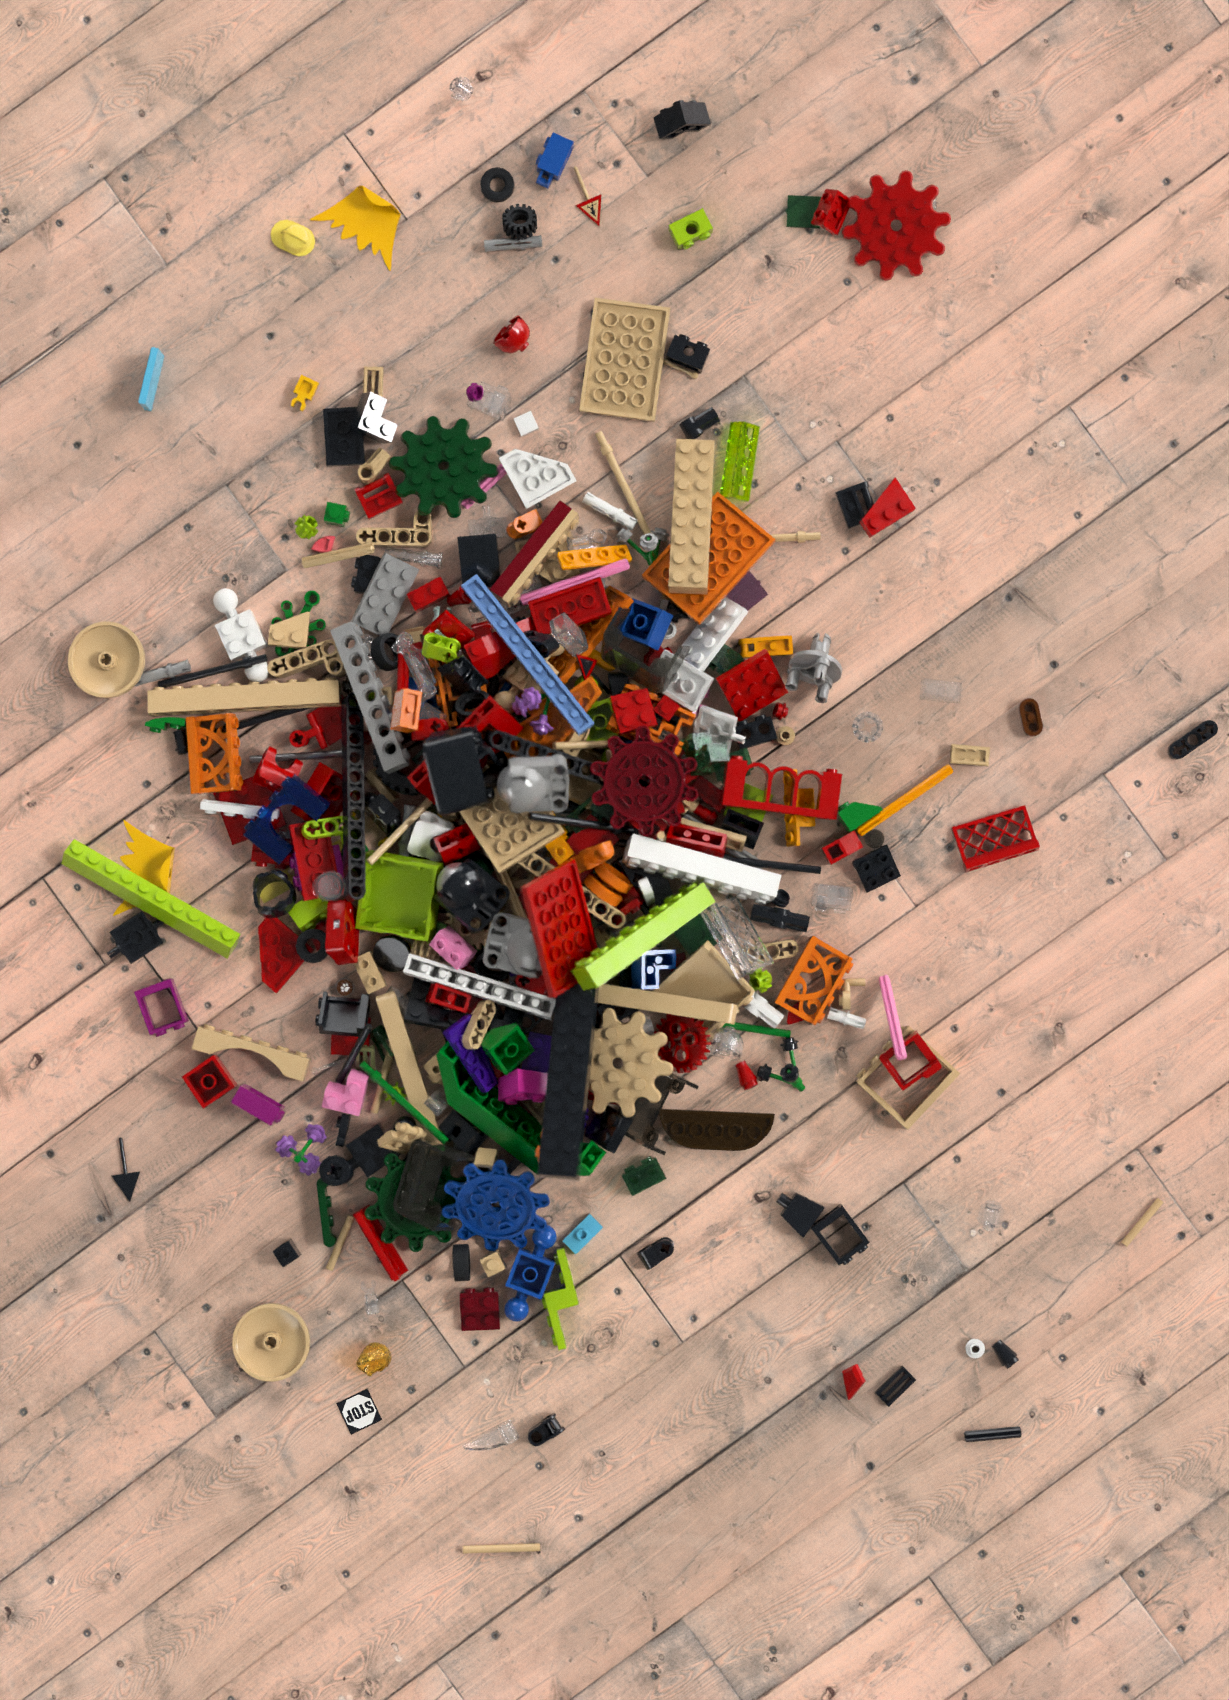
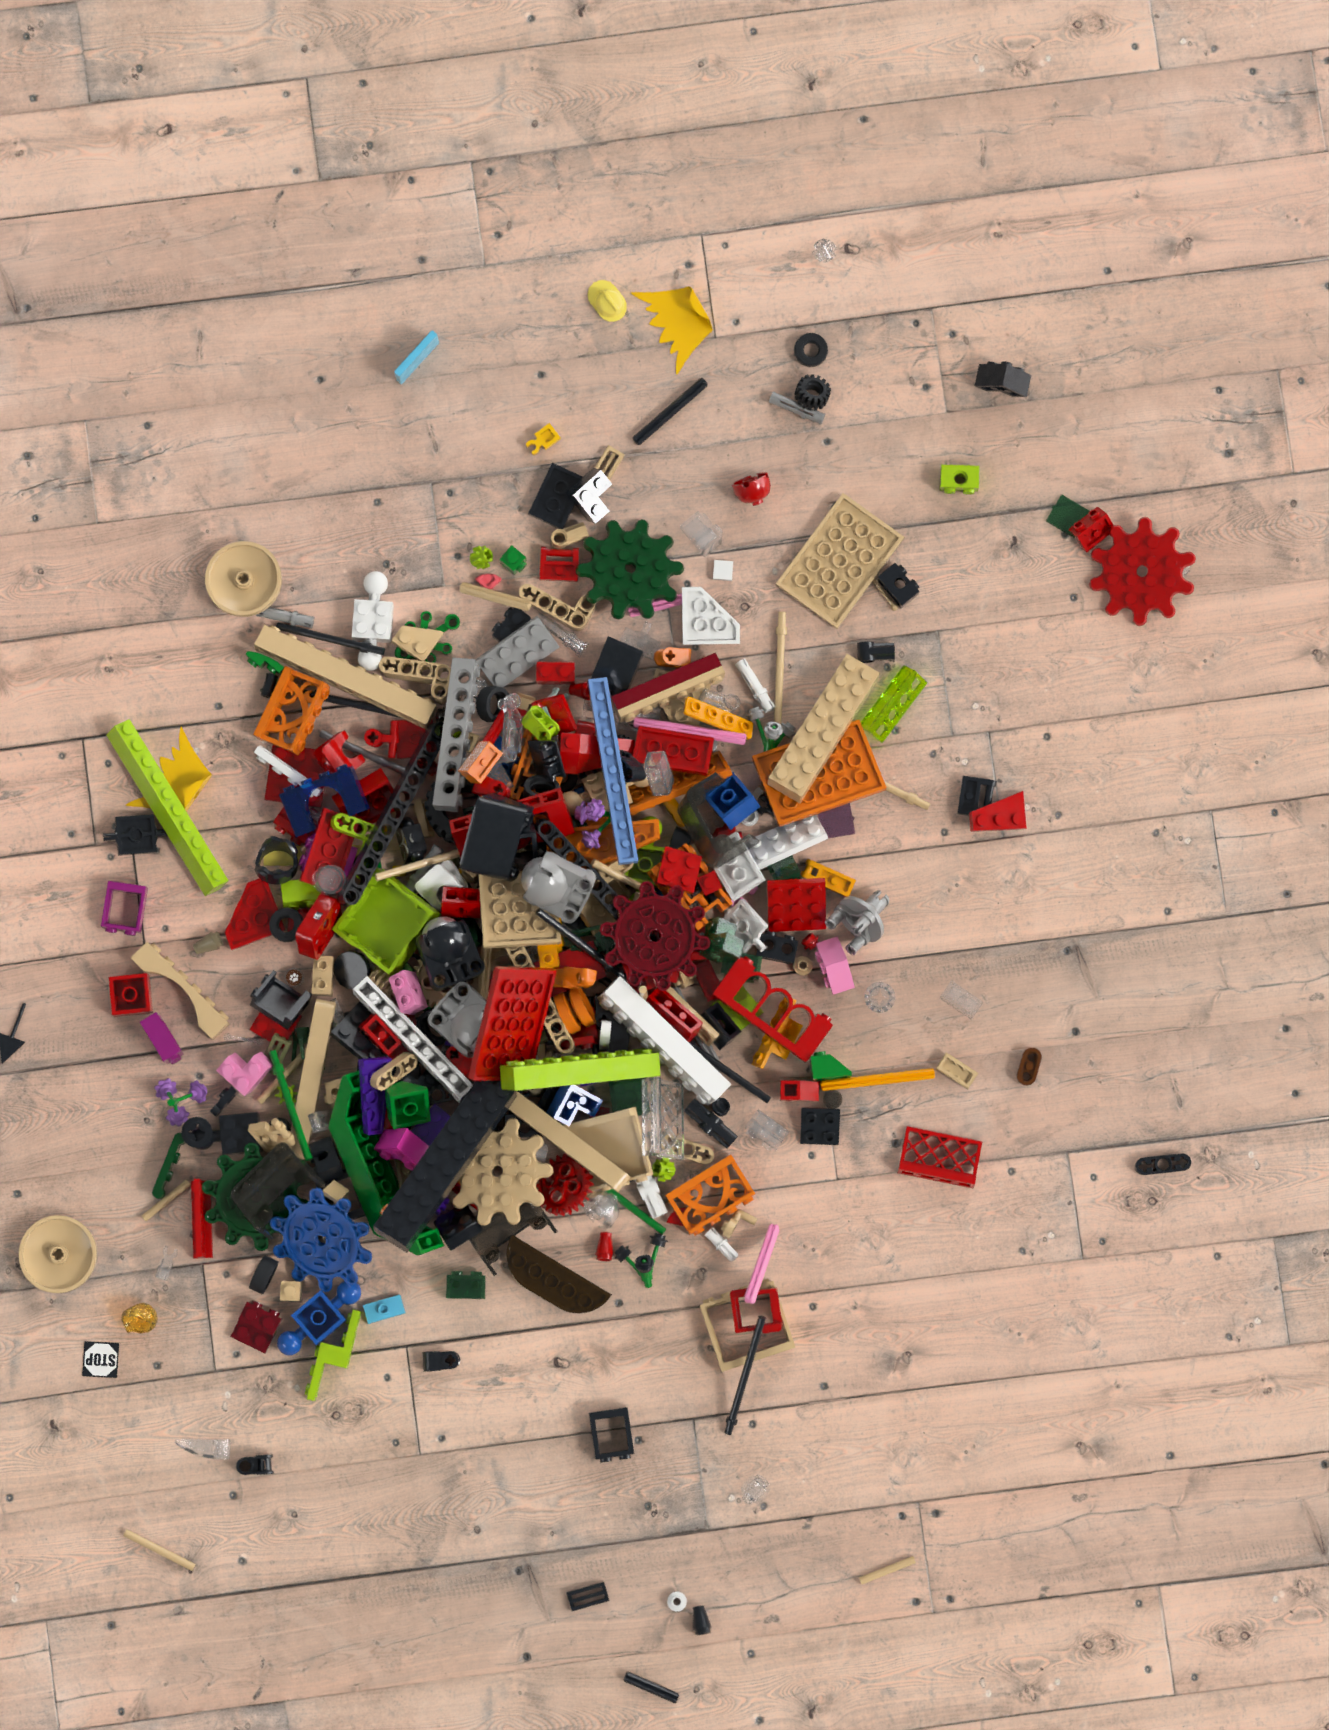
camera: 25 degrees right, 5 degrees down
(253, 997) = (208, 943): none -> dark tan cone
(287, 1252) = (115, 1183): black brick -> none
(353, 1054) = (269, 1039): black bar -> none
(402, 307) = (670, 411): none -> black axle
(474, 392) = (692, 519): magenta plate -> none
(553, 159) = (872, 354): blue brick -> none
(586, 666) = (660, 809): piece -> none
(592, 206) = (883, 412): piece -> none
(705, 814) = (694, 996): red pin -> none
(799, 1211) = (586, 1393): black torso -> none
(813, 720) = (834, 965): none -> bright pink brick
(853, 1380) = (553, 1570): red piece -> none
(937, 1166) = (731, 1420): none -> black bar

